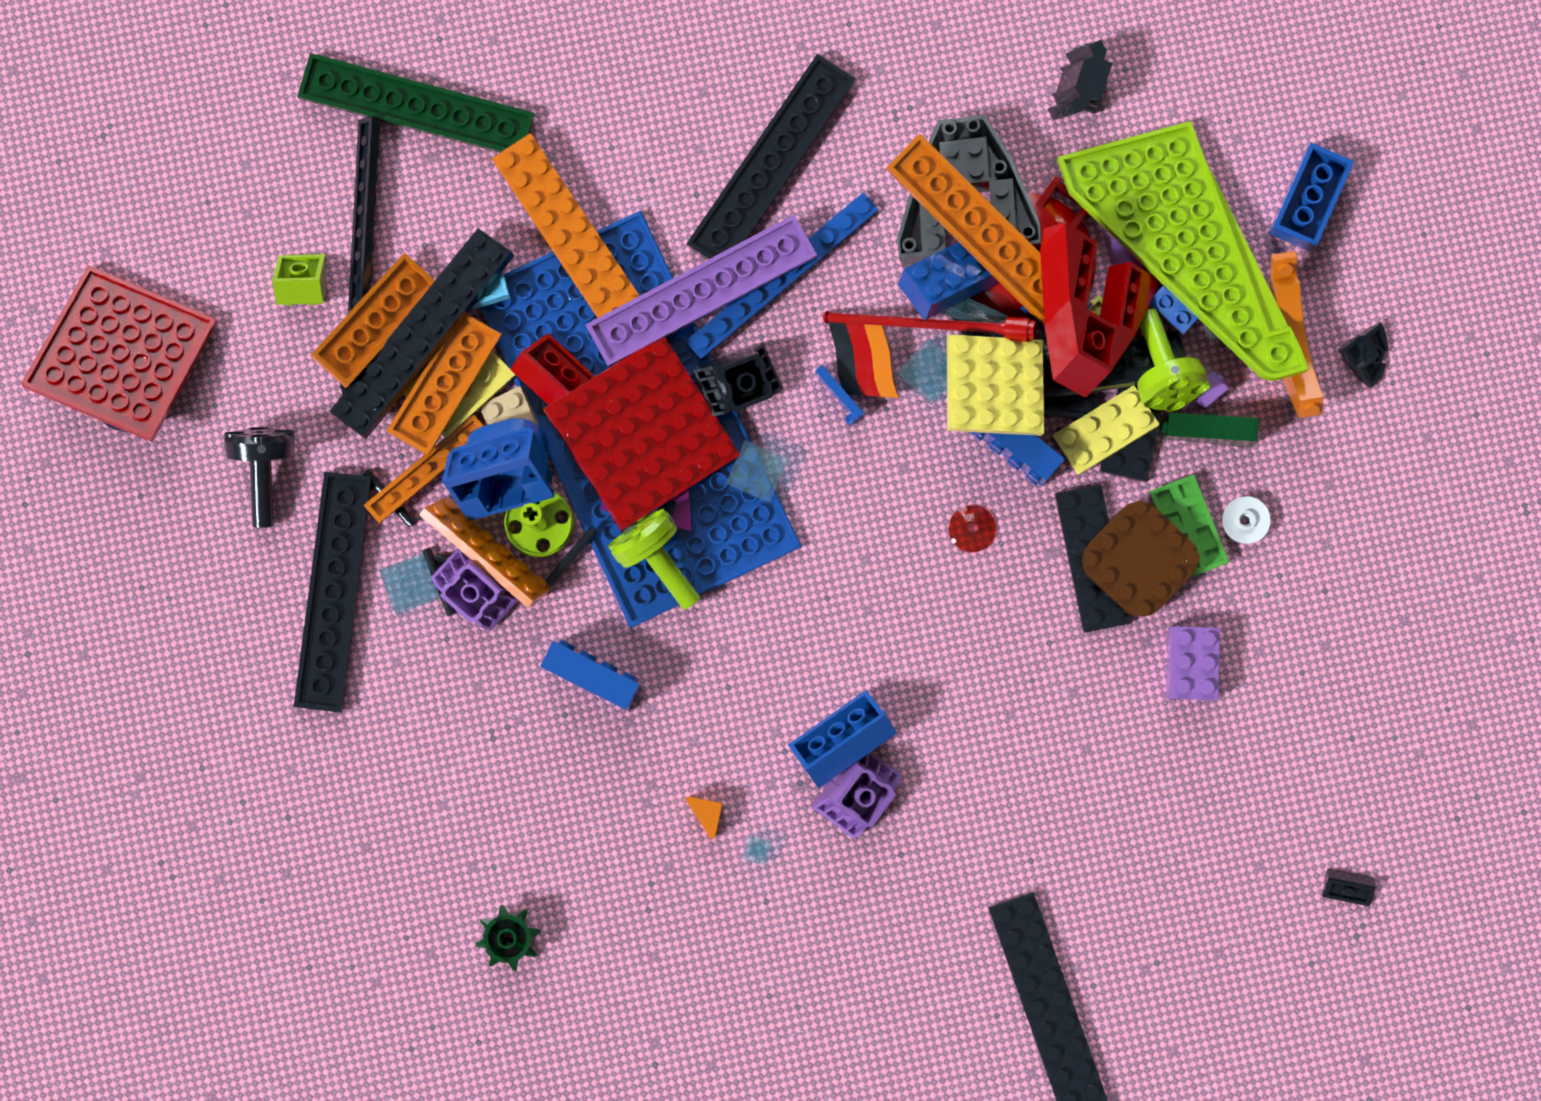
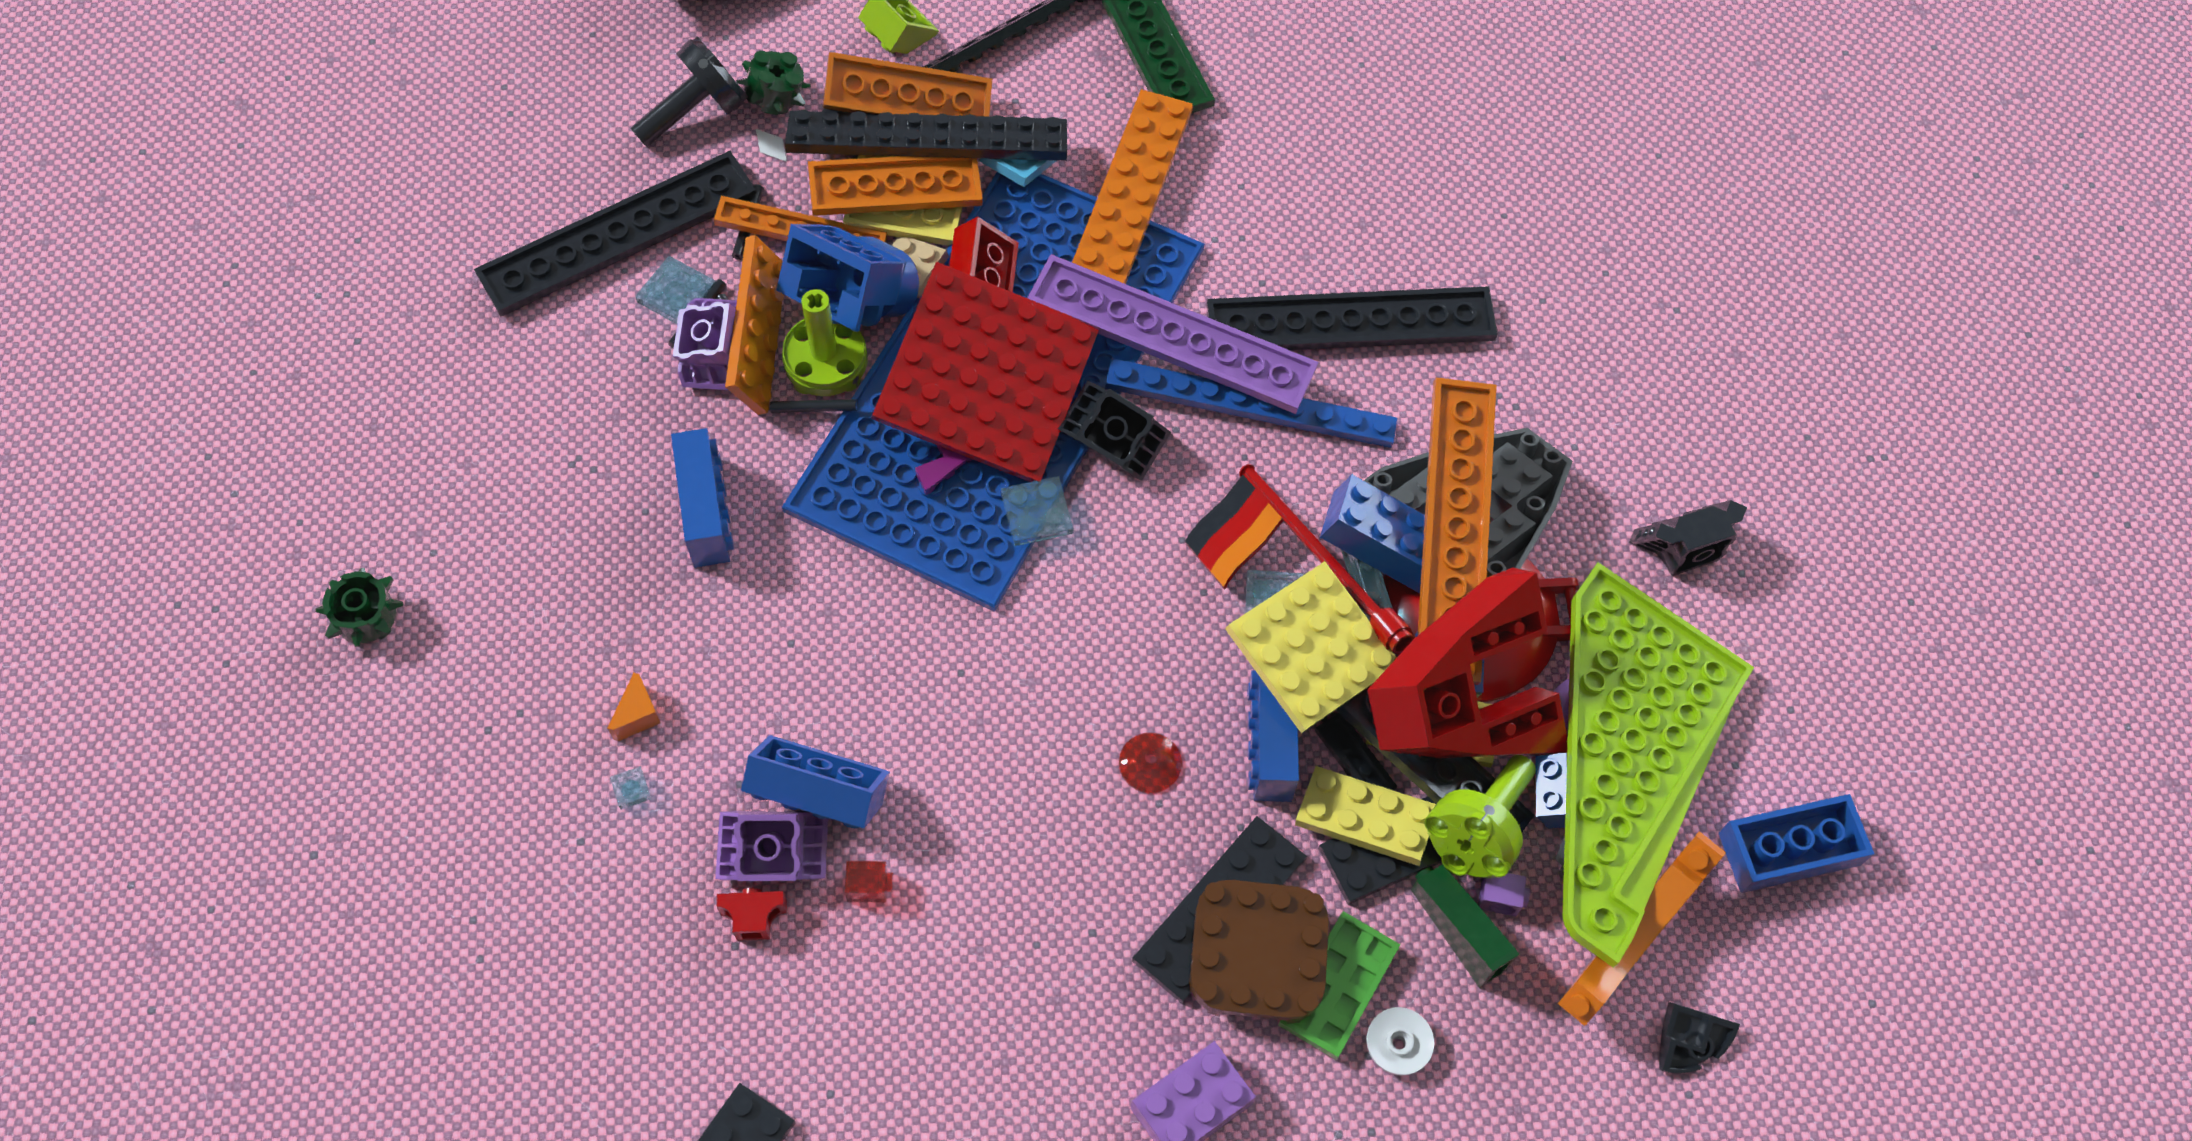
camera: 45 degrees right, 20 degrees down
(291, 403) = (774, 81): none -> dark green brick
(334, 438) = (771, 145): none -> white sticker
(645, 541) = (878, 444): lime piece -> none
(839, 393) = (1171, 560): blue hinge -> none
(891, 831) = (752, 912): none -> red brick
(924, 751) = (868, 881): none -> clear red brick

